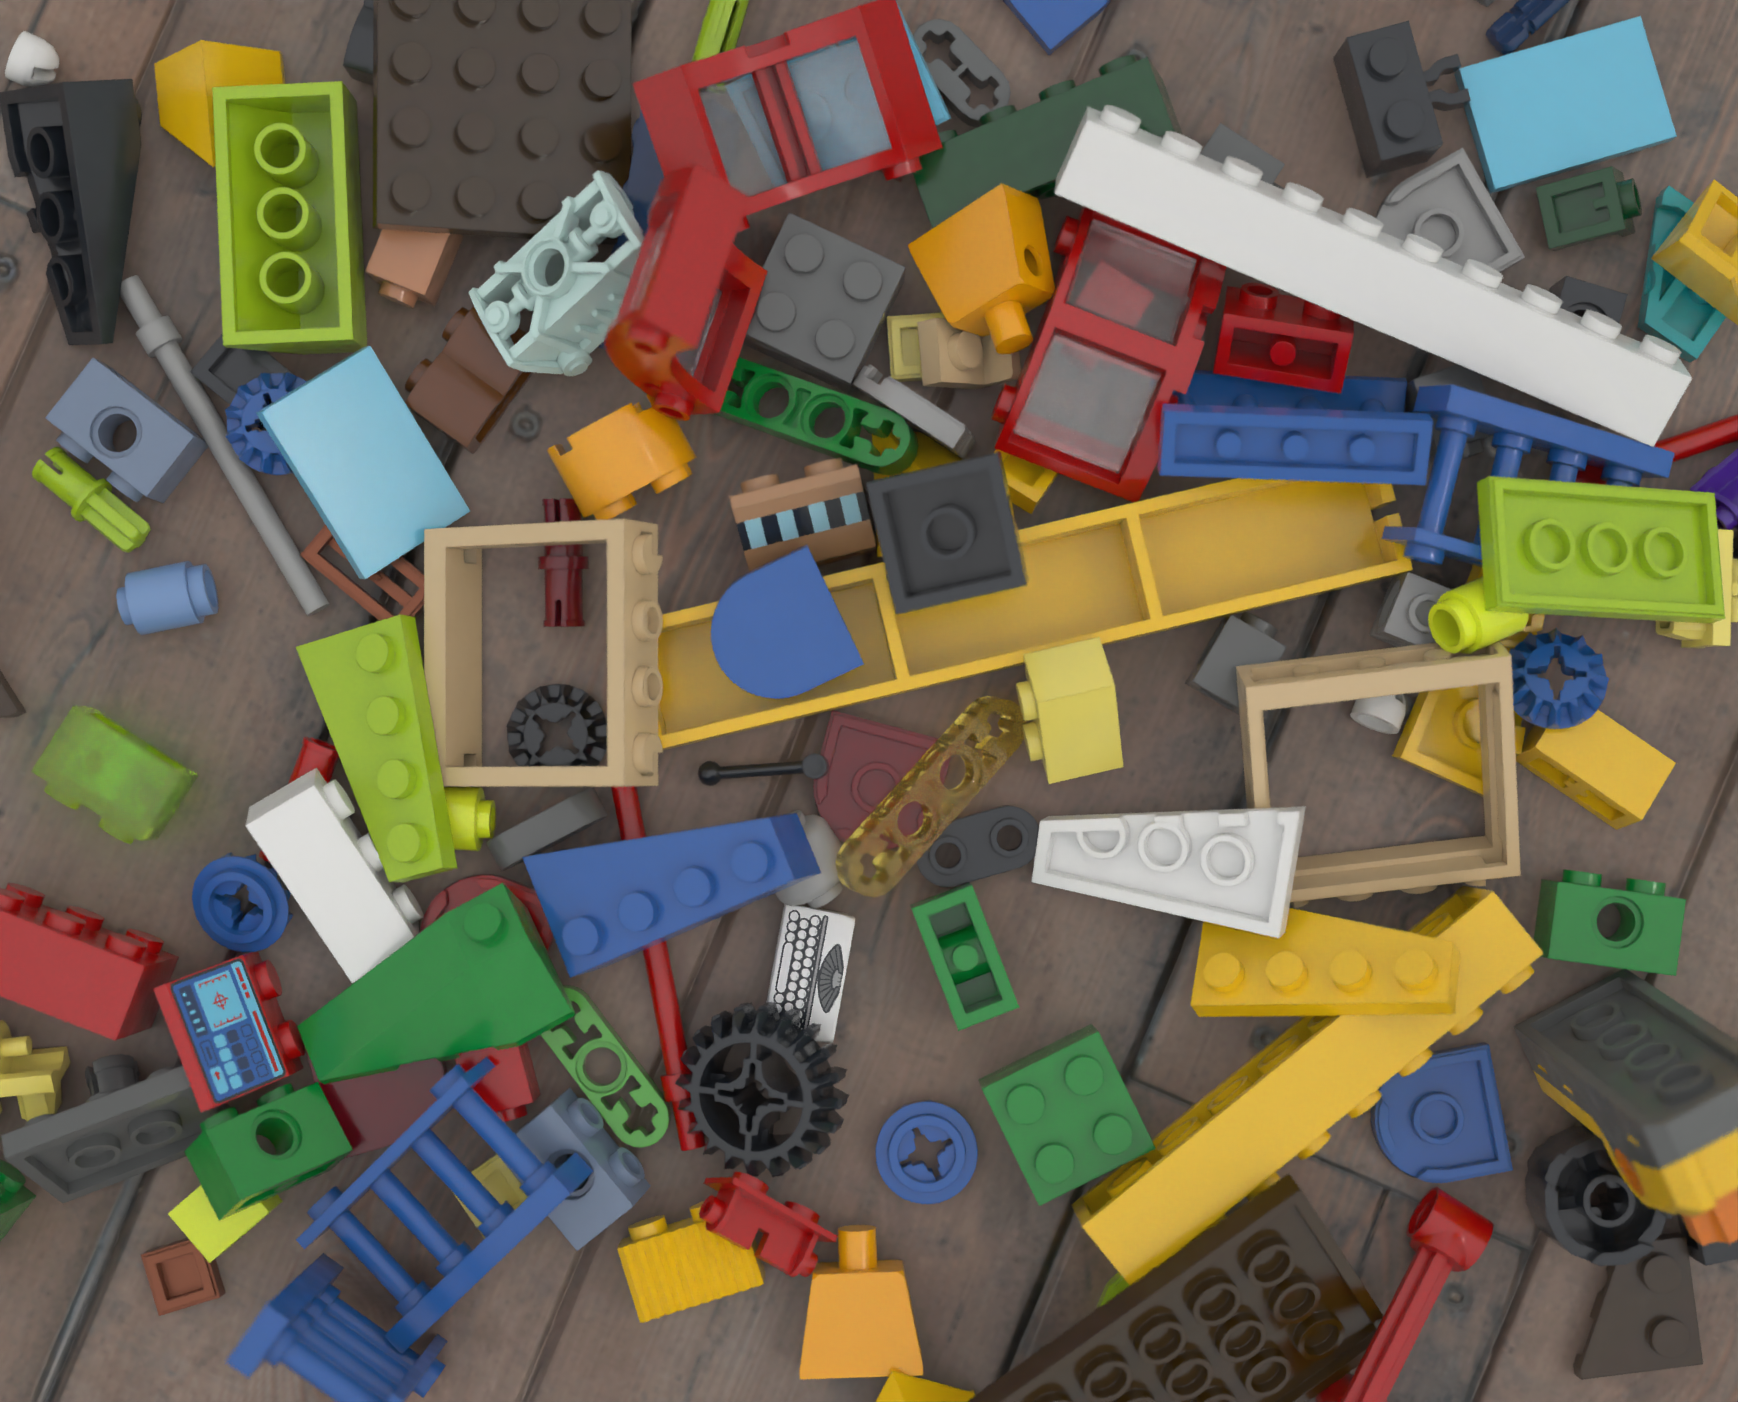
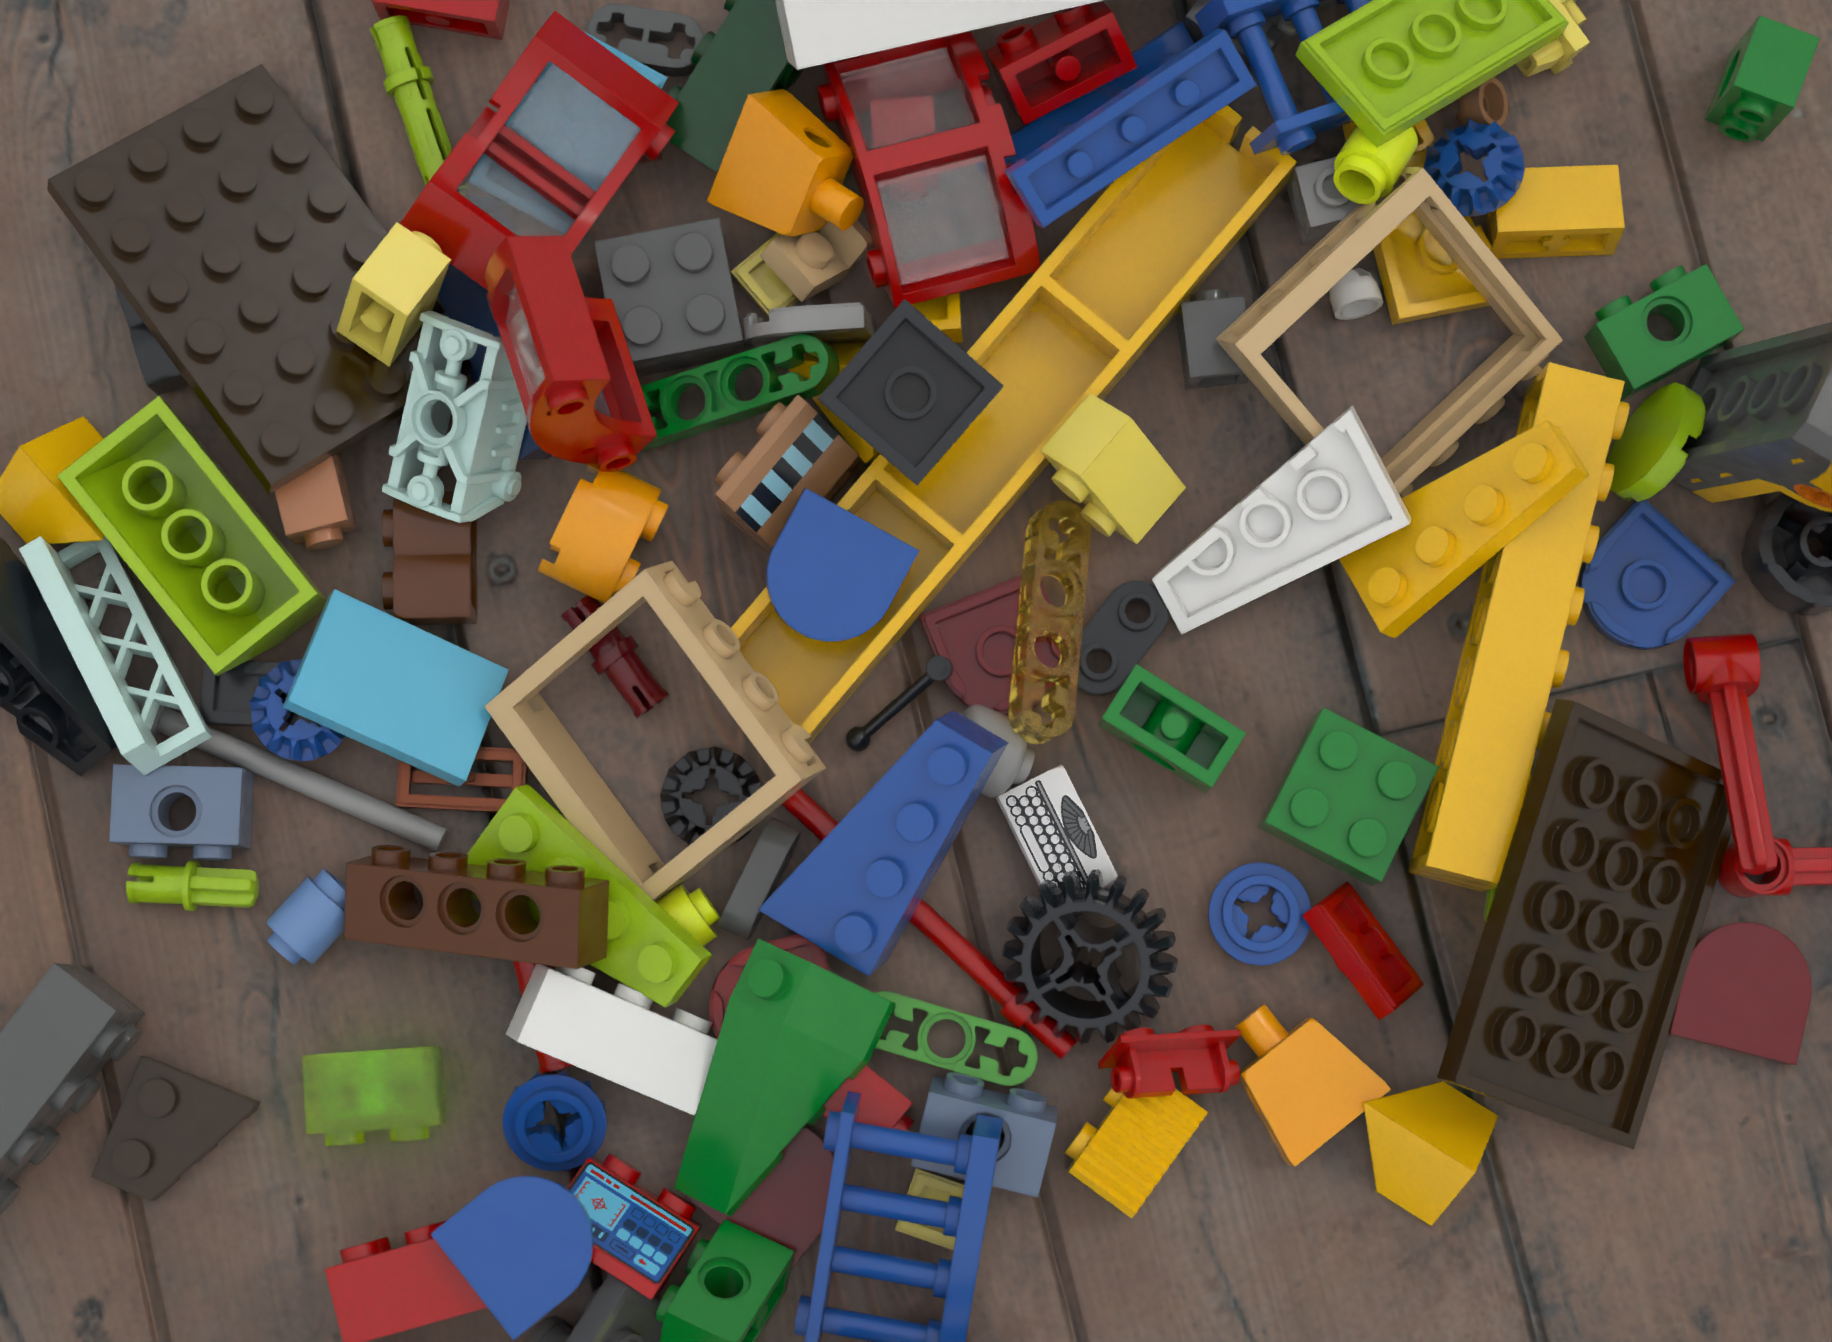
camera: 30 degrees left, 5 degrees down
(124, 995) = (520, 1248): none -> blue tile
(138, 264) = (95, 661): none -> light aqua fence
(264, 660) = (385, 911): none -> reddish brown brick
(590, 134) = (392, 292): none -> light yellow brick
(986, 1244) = (1363, 950): none -> red plate
(1535, 1013) = (1653, 440): none -> lime tile
(1603, 634) = (1484, 104): none -> medium nougat hinge

